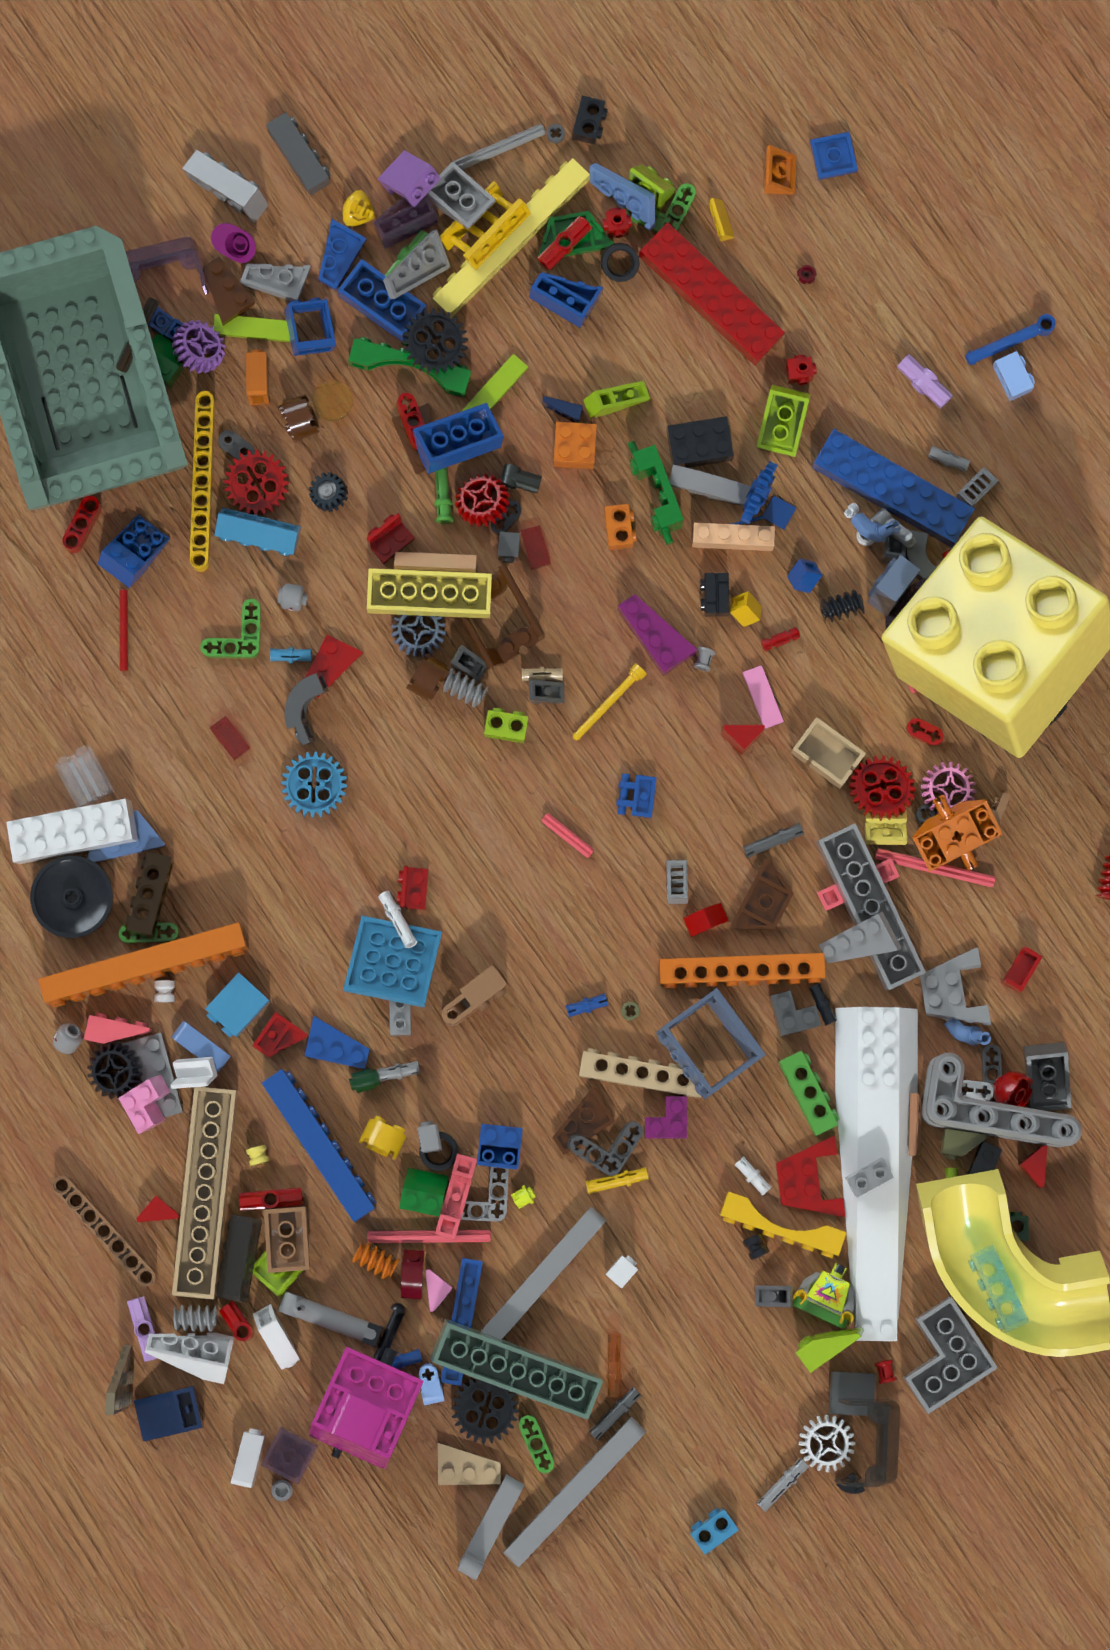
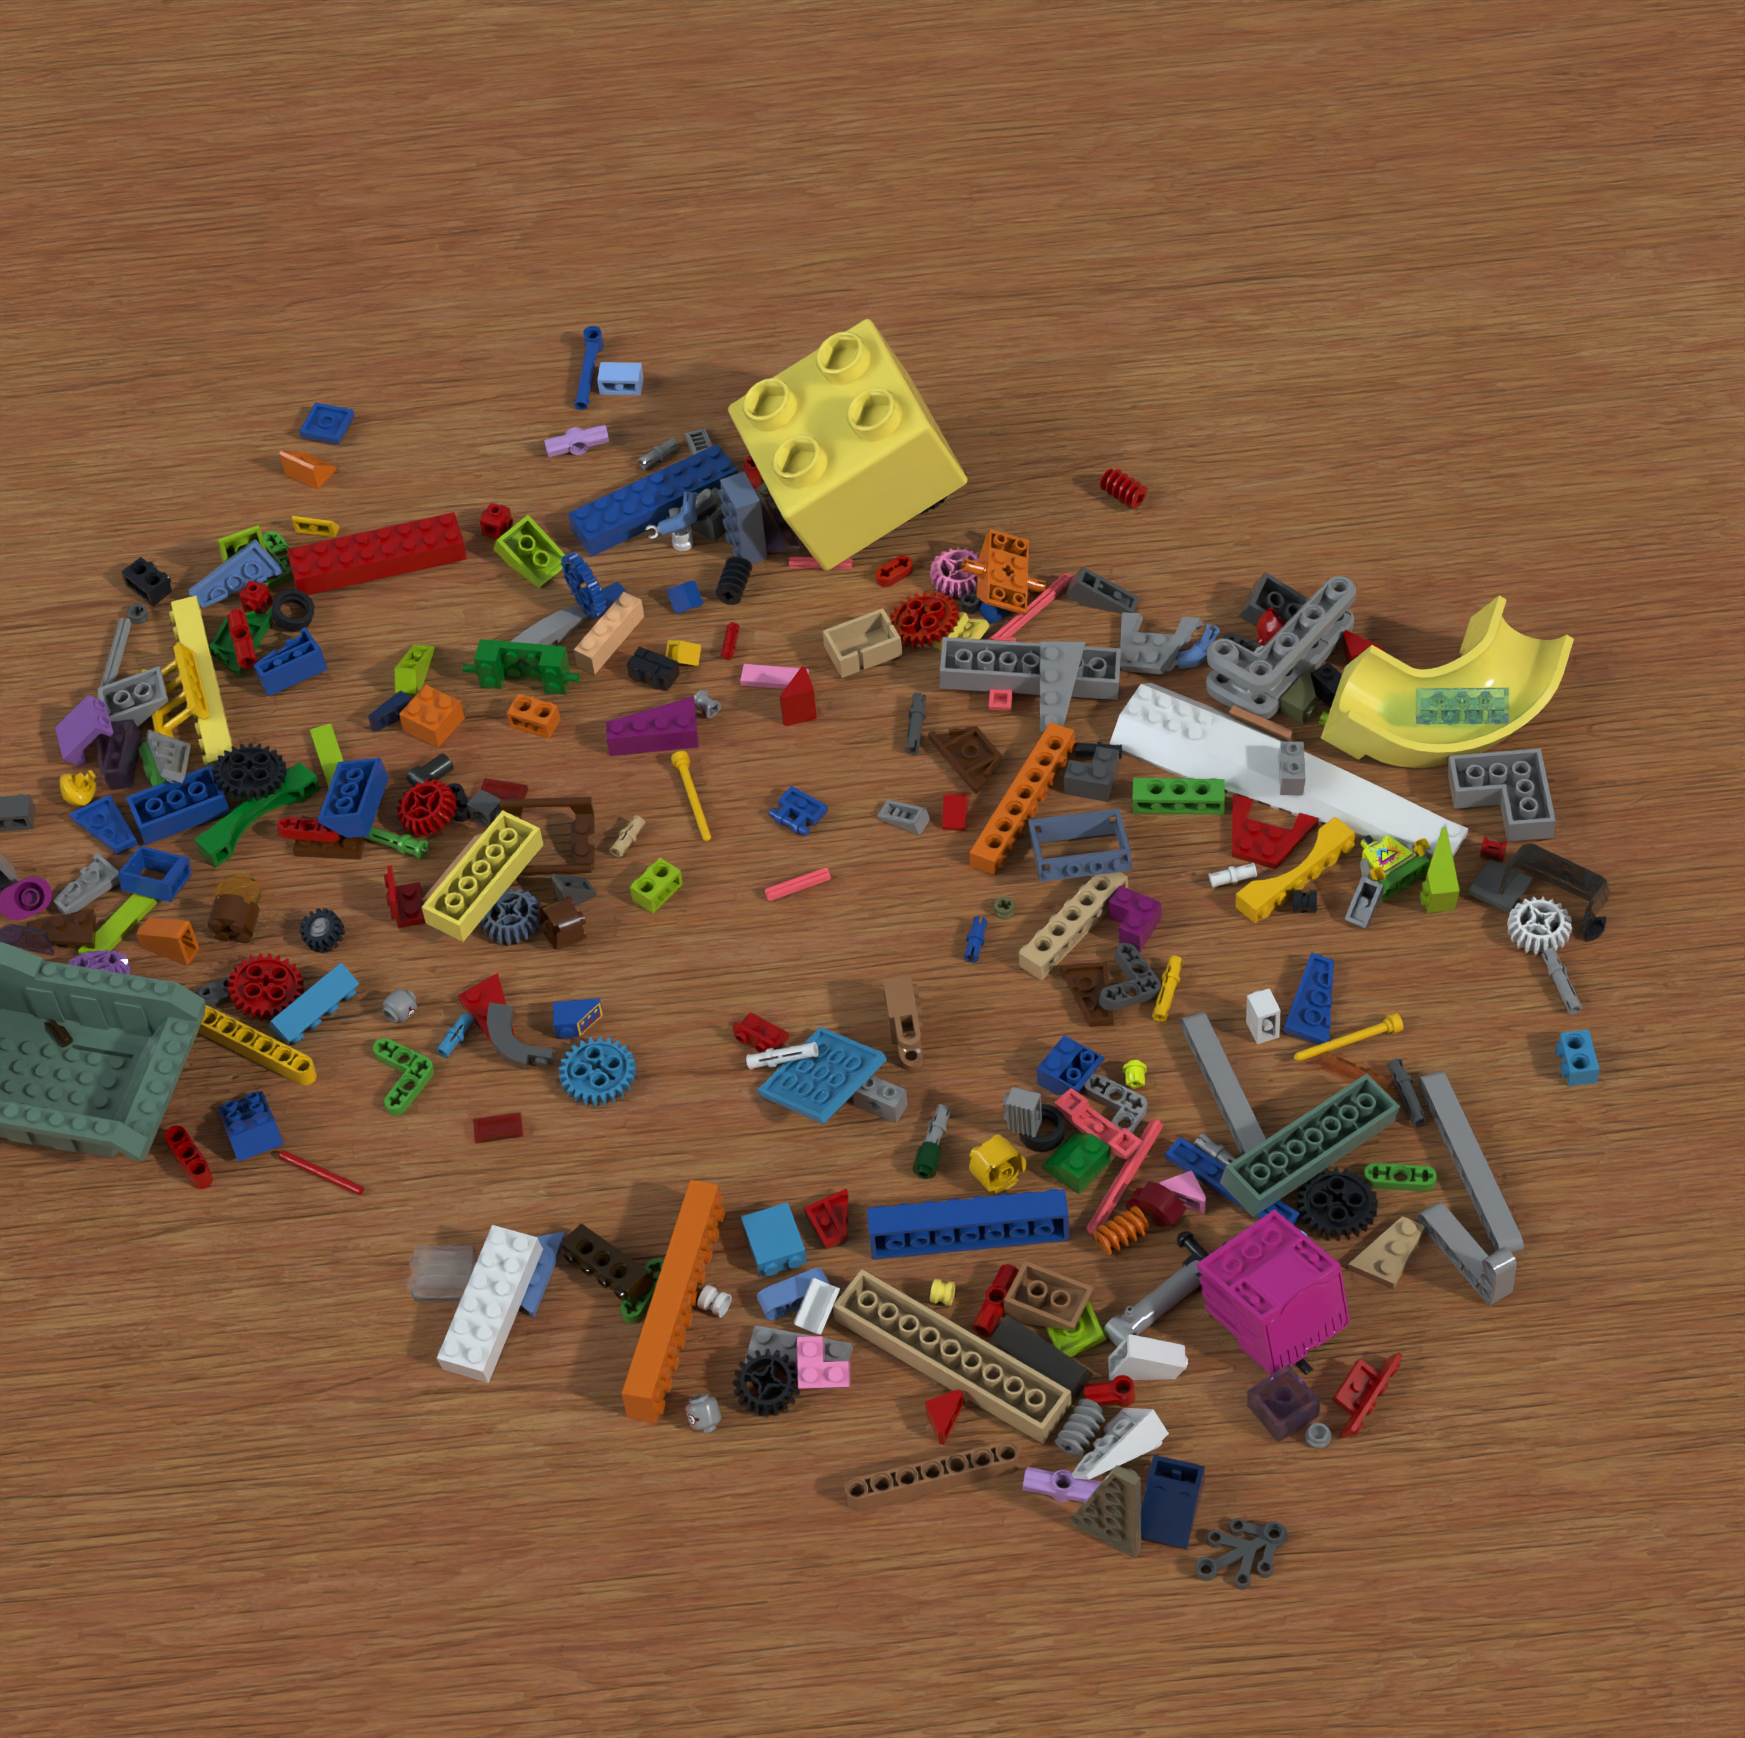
camera: 50 degrees left, 30 degrees down
(71, 897) = (557, 1338): black dish -> none
(107, 1031) = (718, 1372): coral slope -> none
(163, 1483) = (1243, 1549): none -> dark grey plant
(248, 1458) = (1266, 1446): white slope -> none
(333, 1505) = (1360, 1390): none -> red bracket
(334, 1046) = (874, 1175): blue wing -> none
(351, 737) = (575, 1017): none -> blue slope
(464, 688) = (597, 899): light grey piece -> none
(484, 1296) = (1214, 1150): none -> light grey pin
(546, 692) = (643, 839): dark grey slope -> none
(659, 1300) = (1311, 1007): none -> blue wing
(673, 1371) = (1392, 1023): none -> yellow piece
(700, 442) = (504, 615): black brick -> none
(811, 274) = (414, 485): dark red plate -> none
(987, 920) = (1100, 593): none -> dark grey slope
(1021, 969) = (1165, 586): red panel -> none

